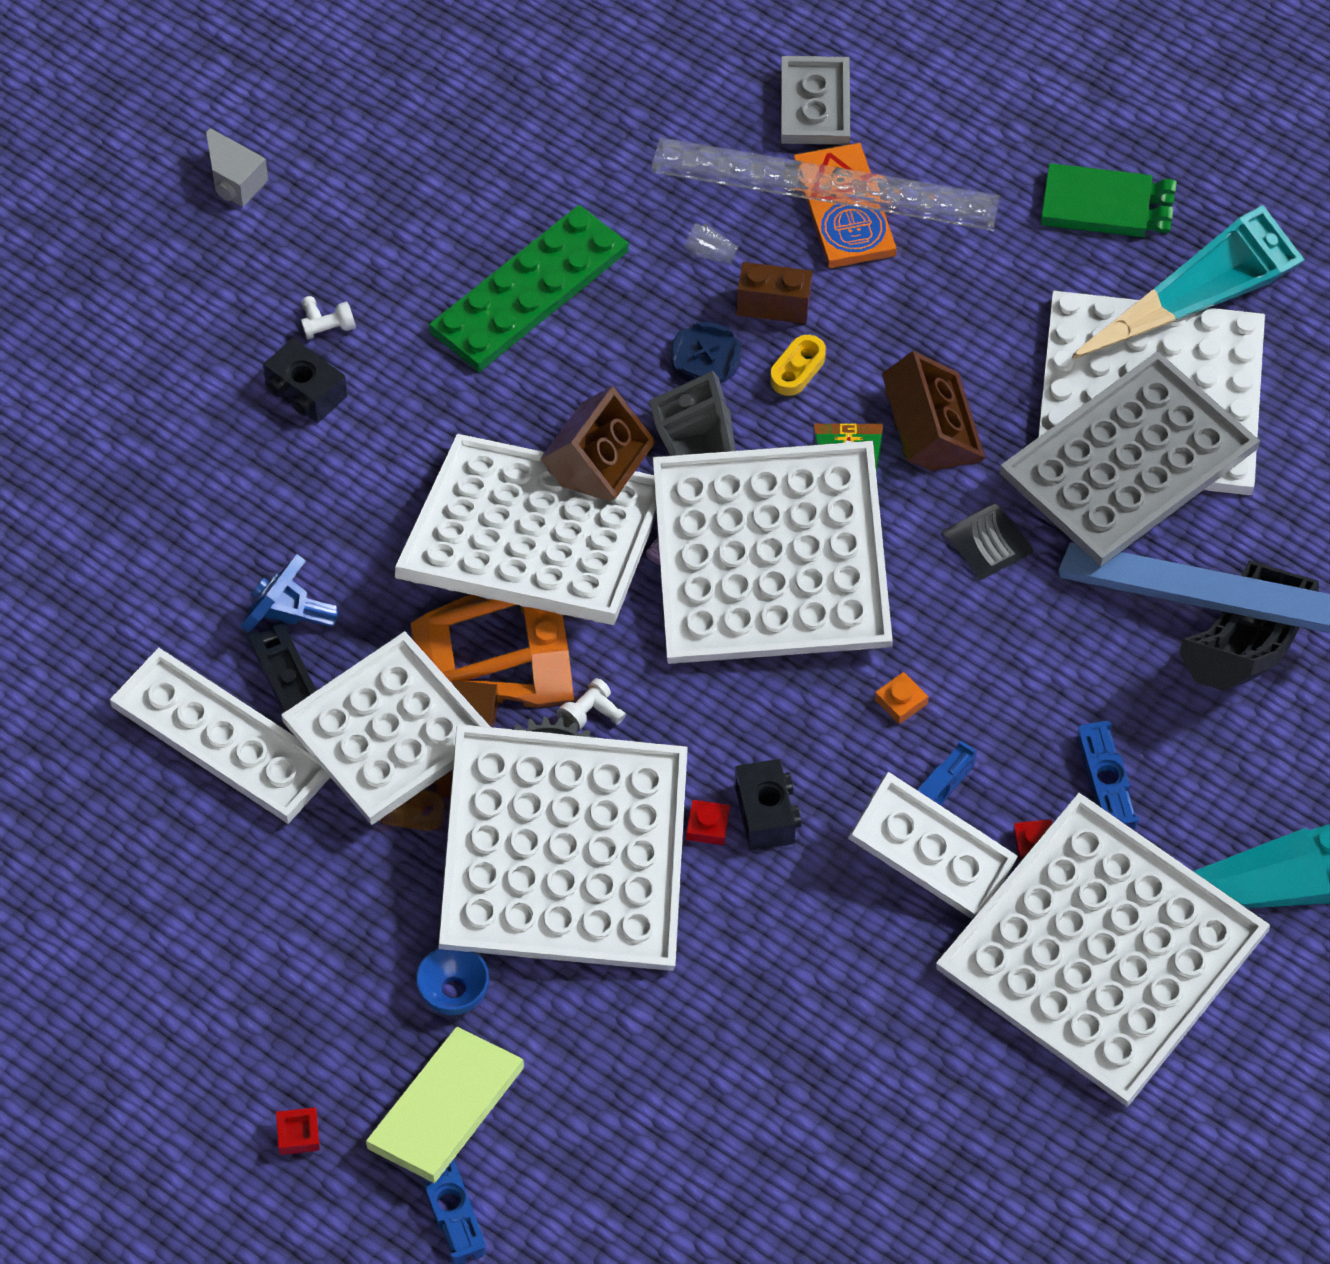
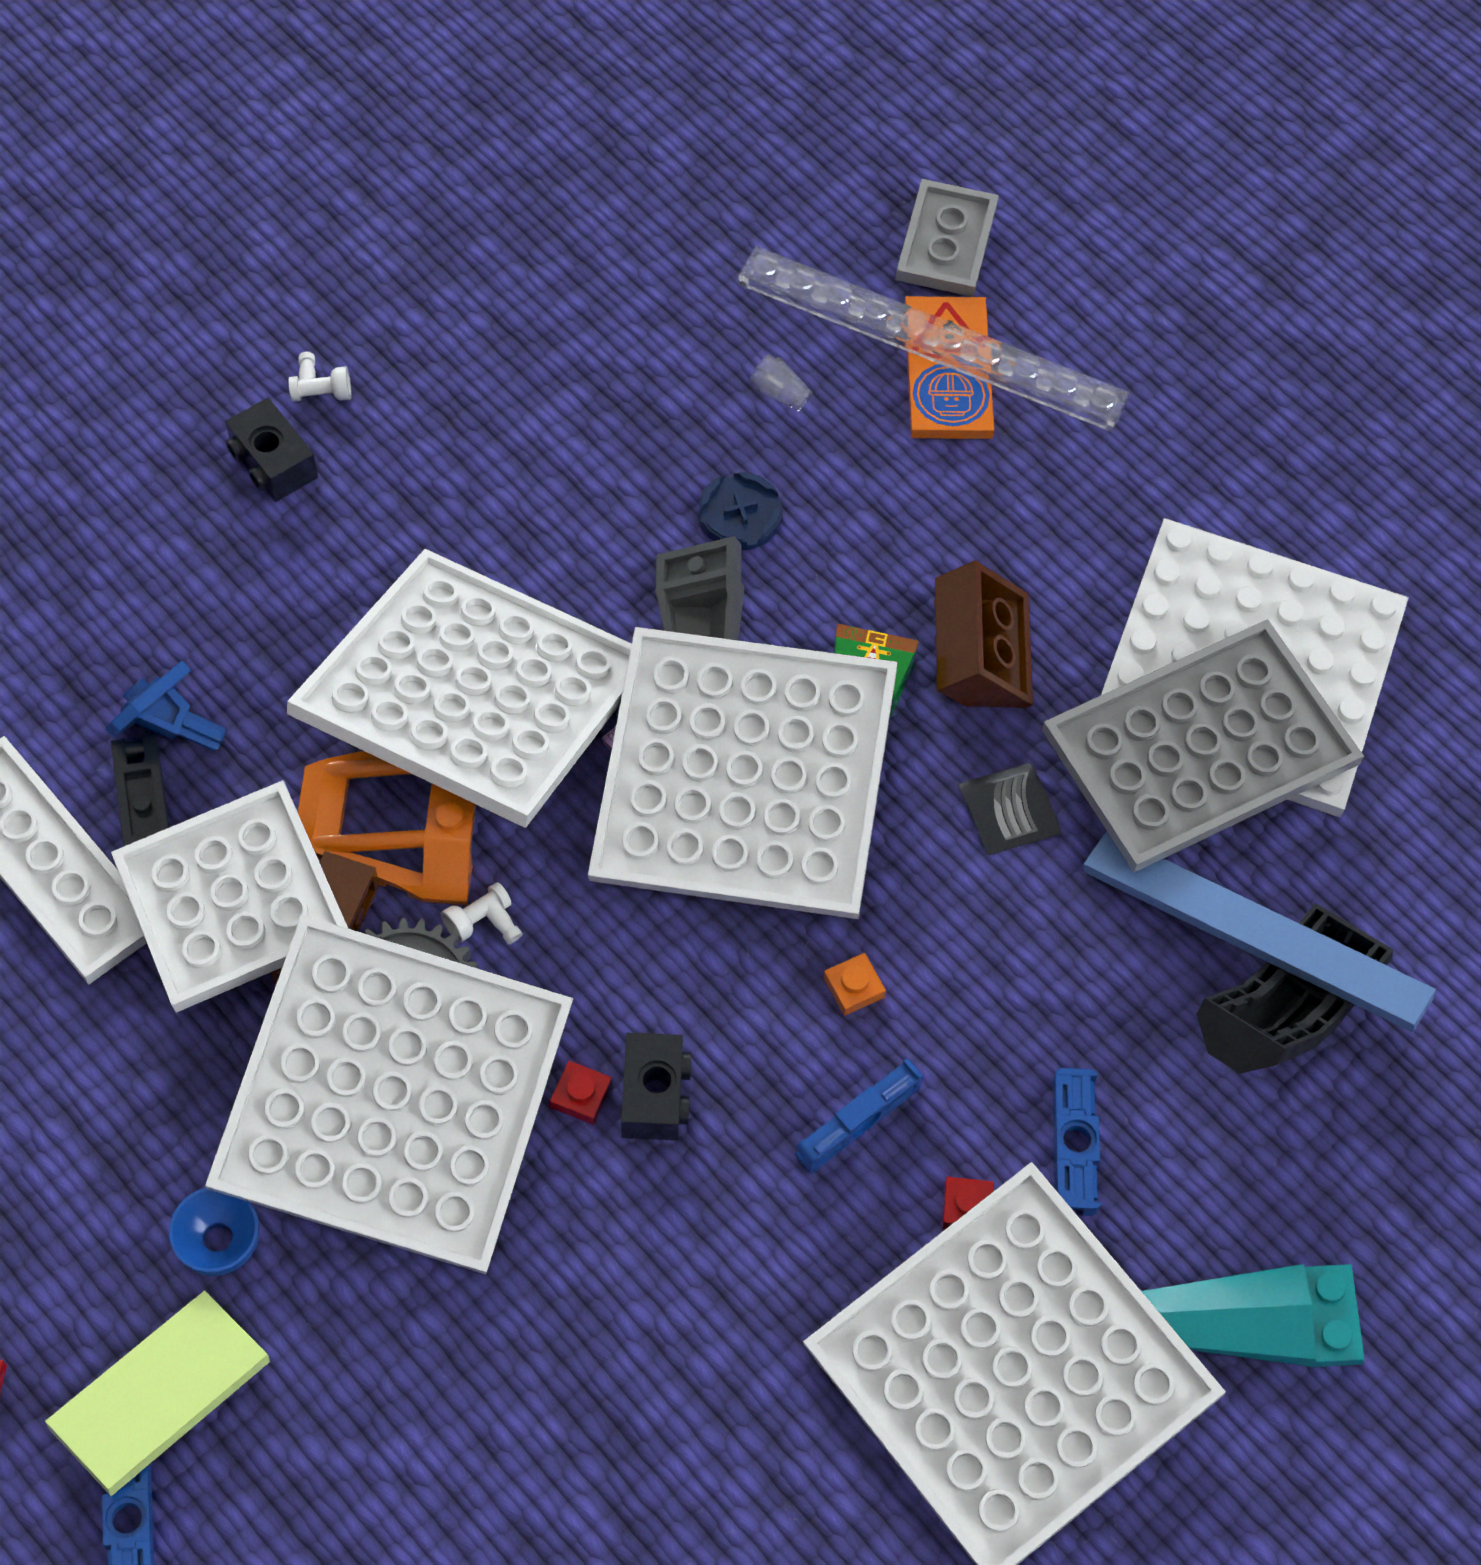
camera: 10 degrees right, 5 degrees up
(235, 169) = (269, 188): light grey slope -> none
(410, 813) = (234, 1009): clear orange beam -> none
(528, 288) = (560, 392): green plate -> none
(599, 447) = (579, 601): reddish brown slope -> none
(774, 292) = (837, 455): reddish brown brick -> none
(795, 367) = (839, 549): yellow plate -> none
(932, 846) = (835, 1190): white plate -> none
(1106, 201) = (1254, 423): green tile -> none
(1232, 264) = (1382, 531): teal plate -> none

